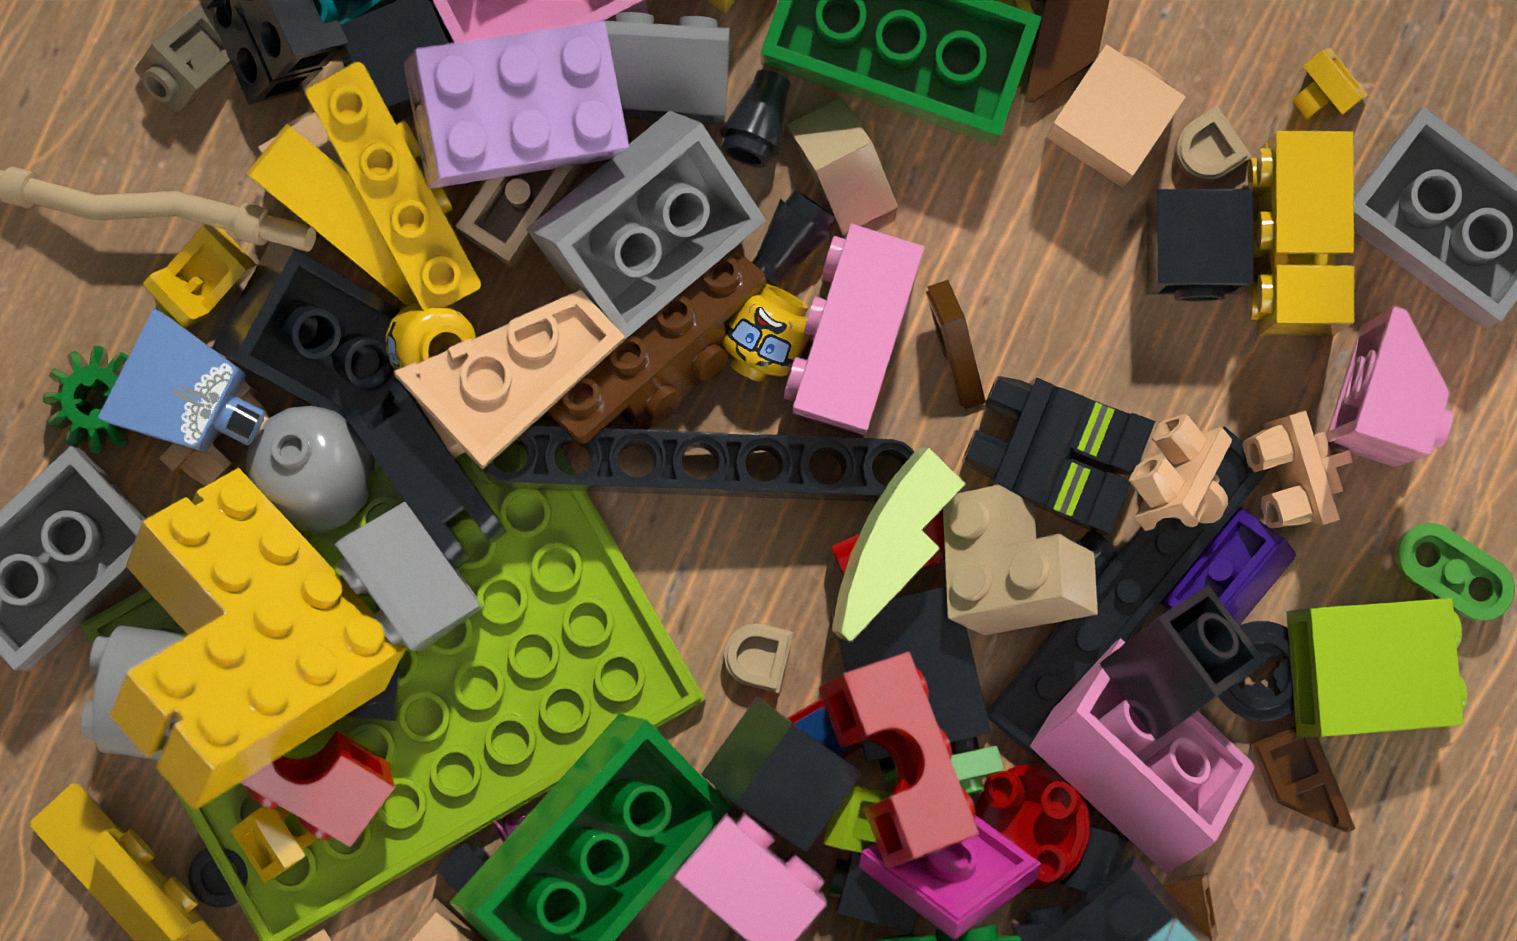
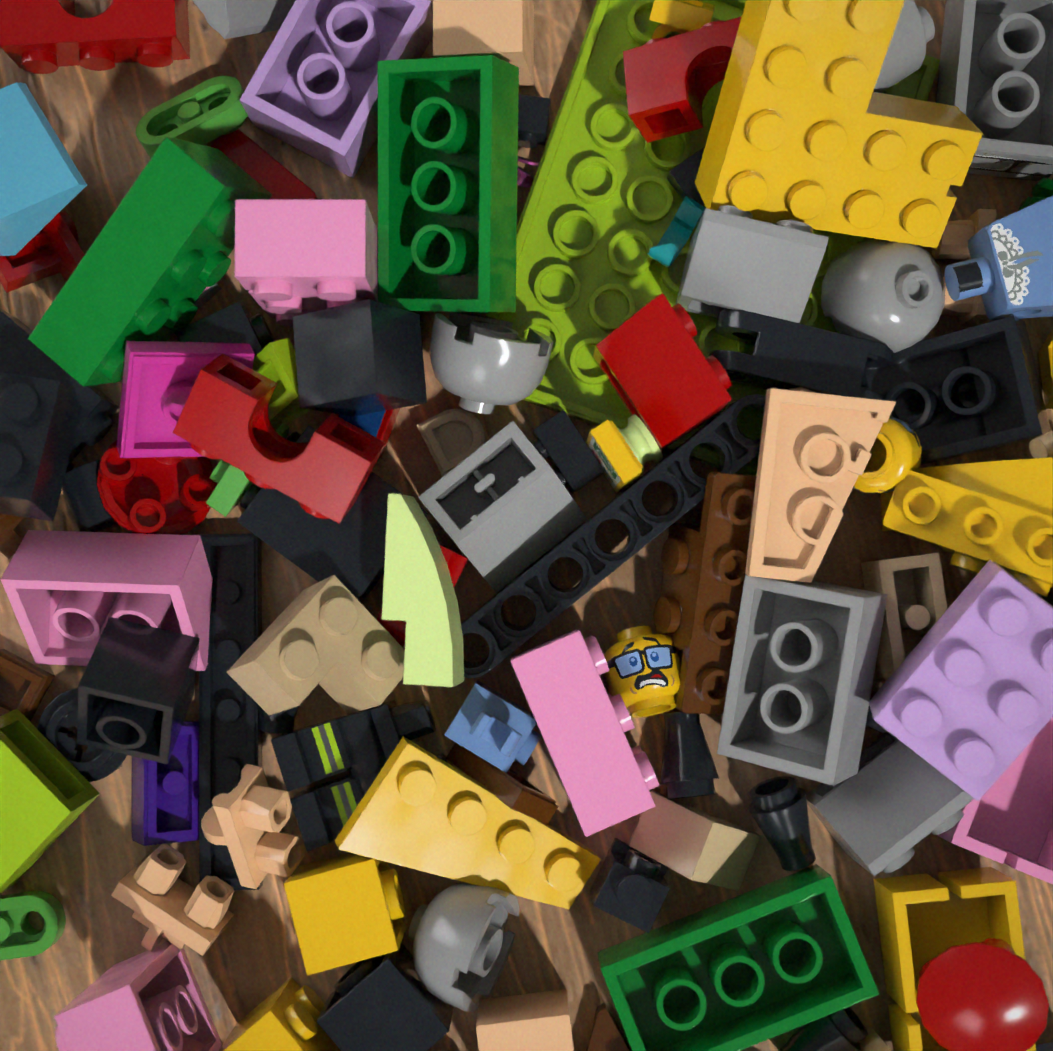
camera: 140 degrees right, 0 degrees up
(434, 664) = (677, 232): none -> teal piece
(550, 553) = (663, 371): none -> red slope
(616, 519) = (641, 441): none -> yellowish green bush
(644, 523) = (614, 455): none -> yellow tile
(674, 563) = (567, 451): none -> black piece
(677, 688) = (486, 360): none -> light grey cylinder
(766, 560) = (503, 506): none -> light grey slope
(923, 176) = (630, 886): none -> black brick
(925, 392) = (494, 728): none -> medium blue brick
(1020, 337) = (454, 827): none -> yellow wing
(1093, 247) = (462, 942): none -> light grey cylinder
(1161, 350) = (345, 910): none -> yellow head

